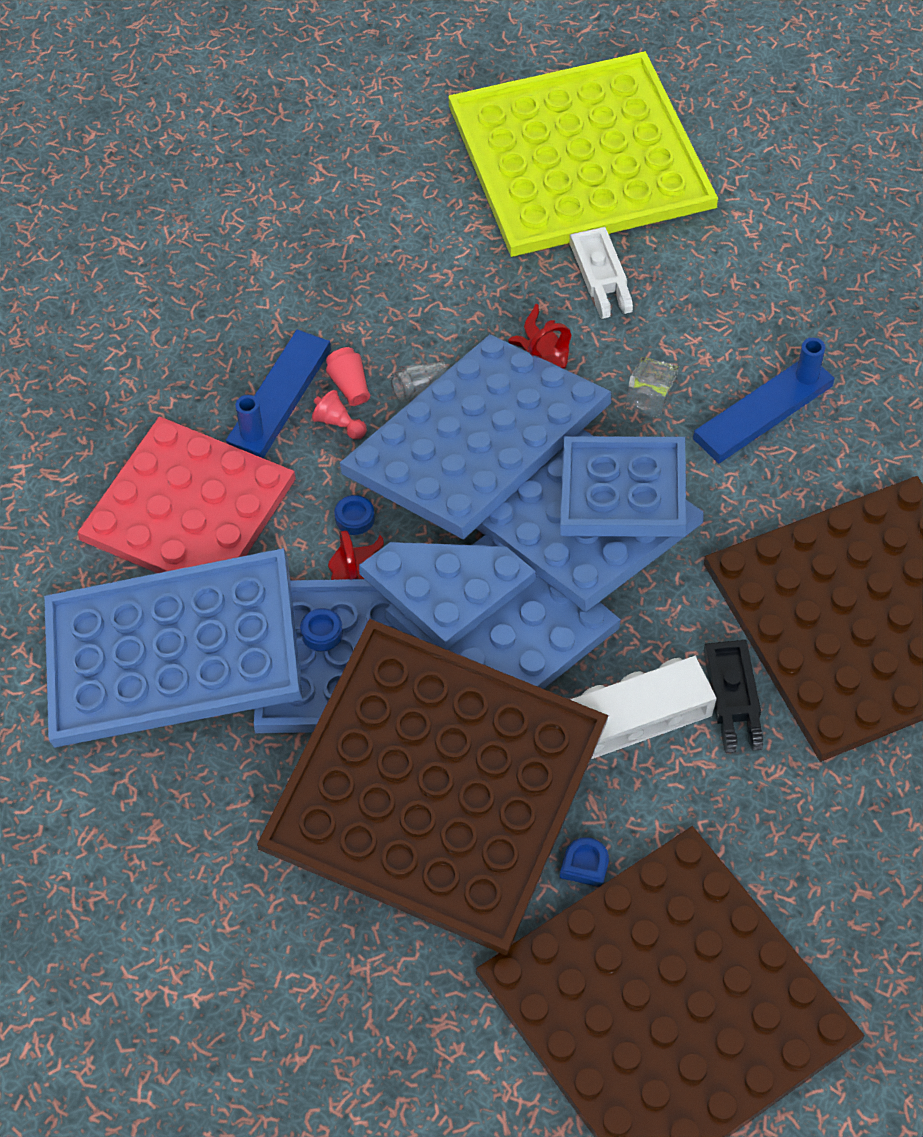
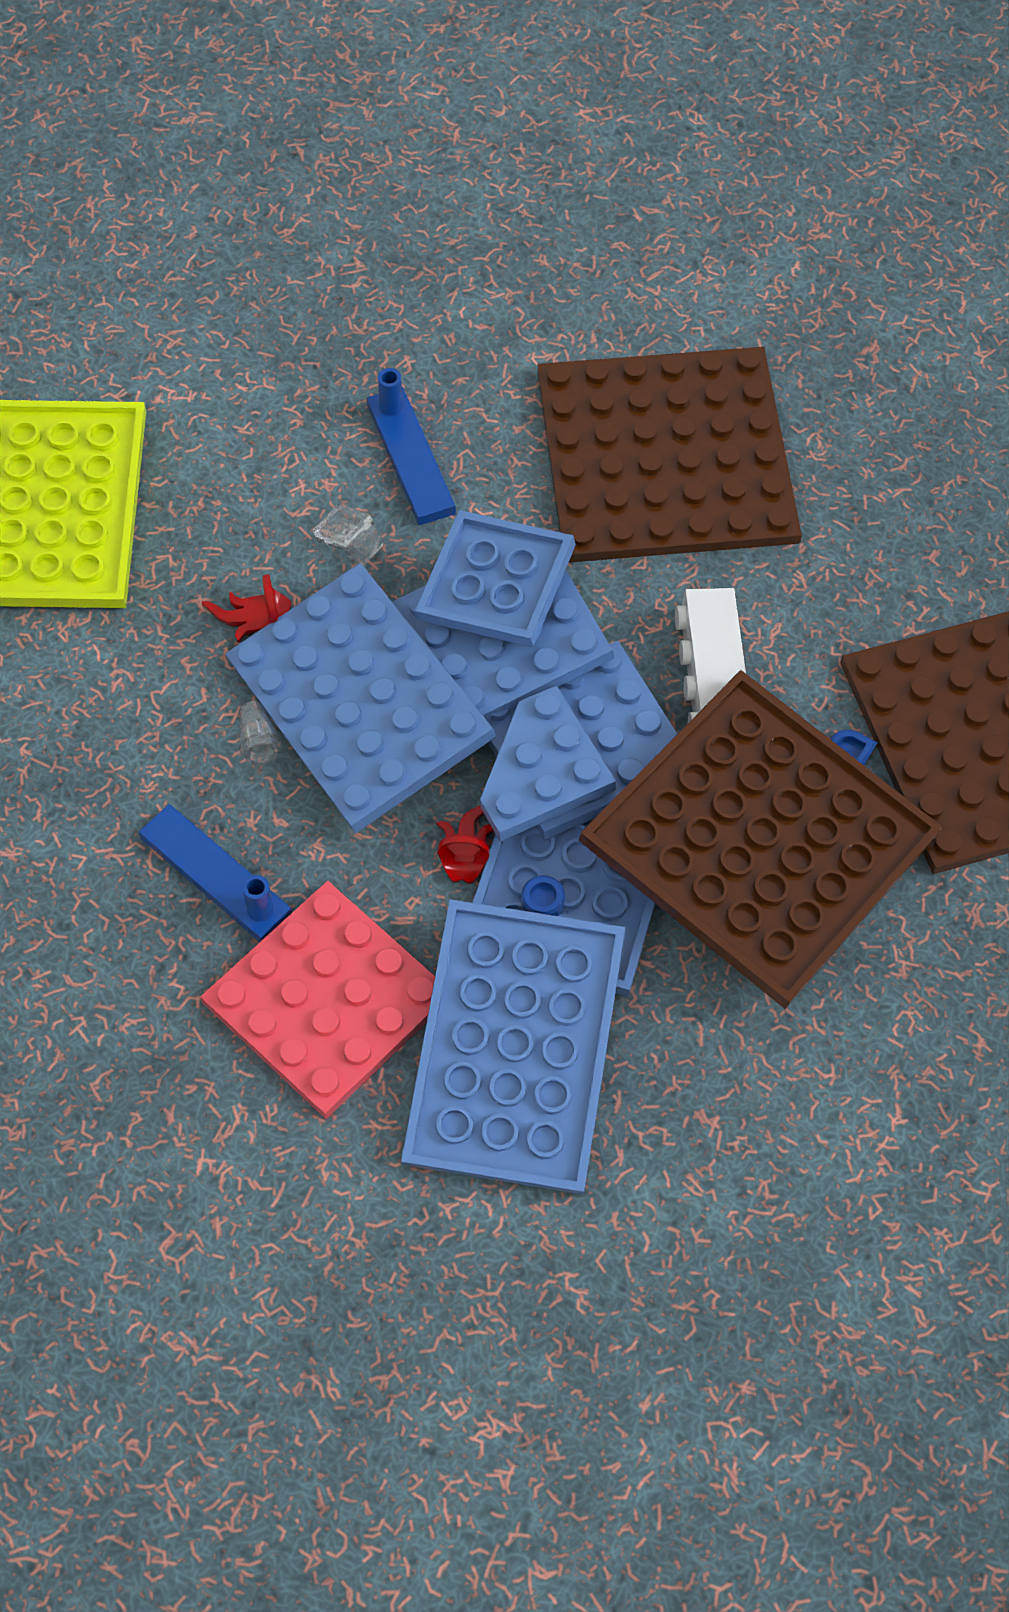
camera: 75 degrees left, 5 degrees up
(332, 411) = (265, 824): coral piece -> none
(348, 374) = (224, 797): coral cone -> none
(354, 514) = (399, 841): blue tile -> none
(601, 269) = (186, 532): white hinge -> none
(735, 690) = (705, 572): black hinge -> none

